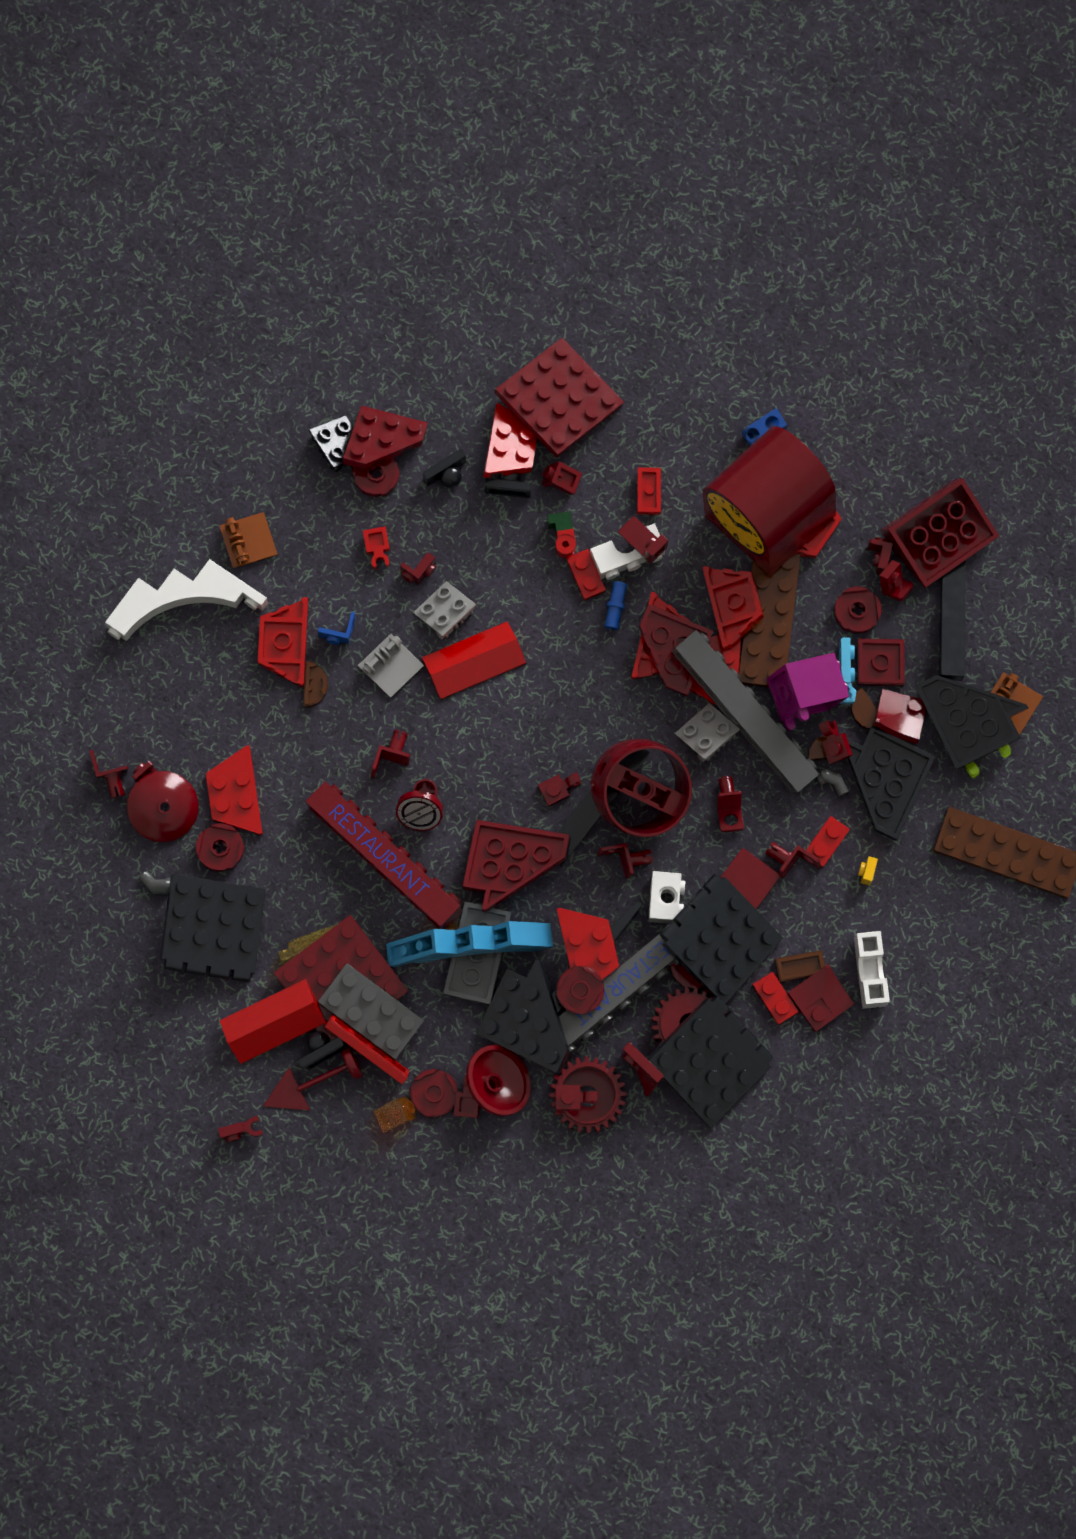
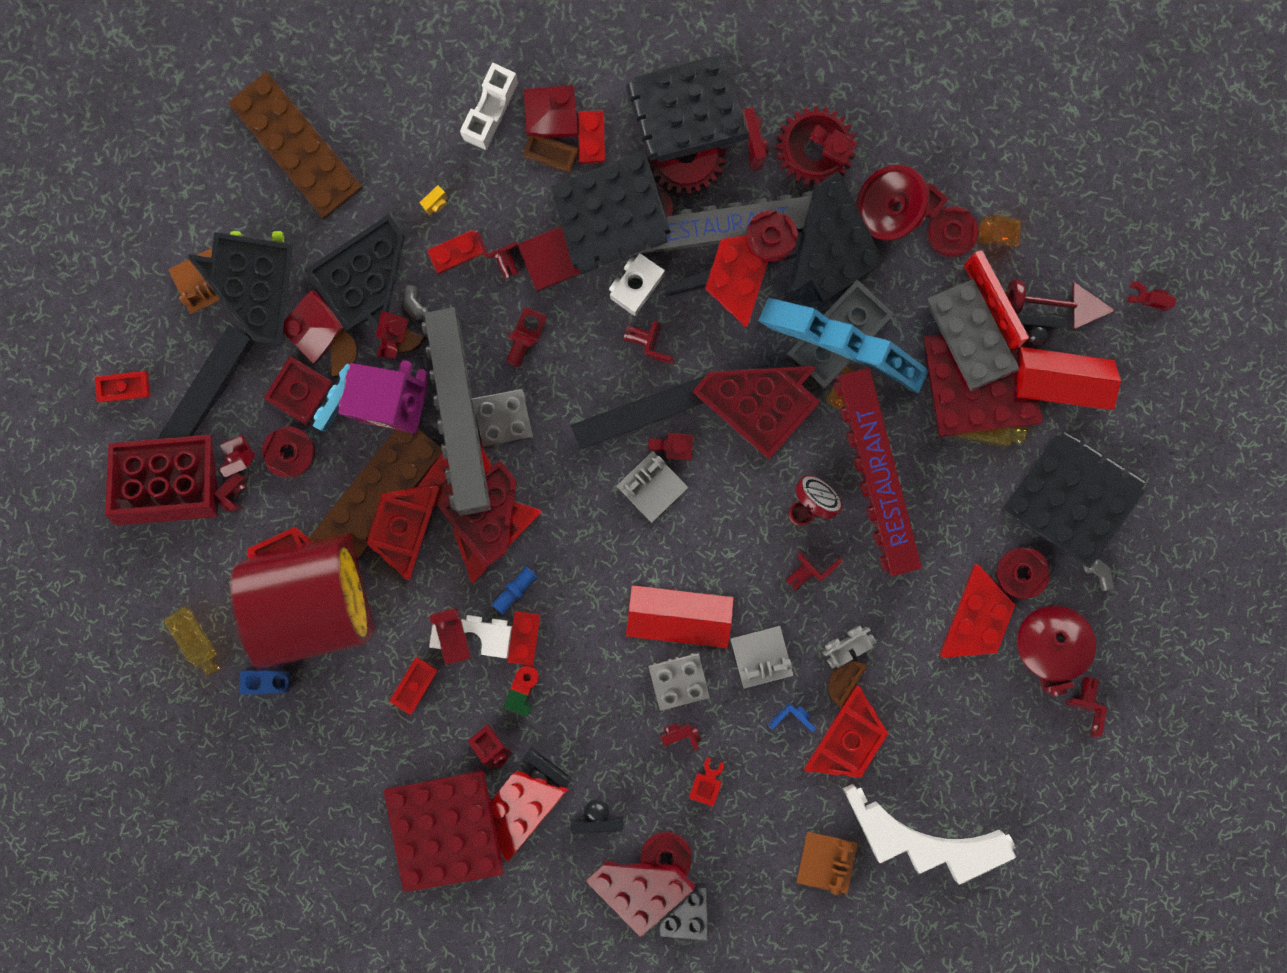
camera: 140 degrees left, 10 degrees up
(324, 719) = (856, 639): none -> light grey hinge
(556, 747) = (652, 486): none -> light grey hinge
(672, 802) = (584, 364): dark red cylinder -> none
(839, 428) = (192, 640): none -> clear yellow hinge
(1018, 586) = (122, 386): none -> red plate

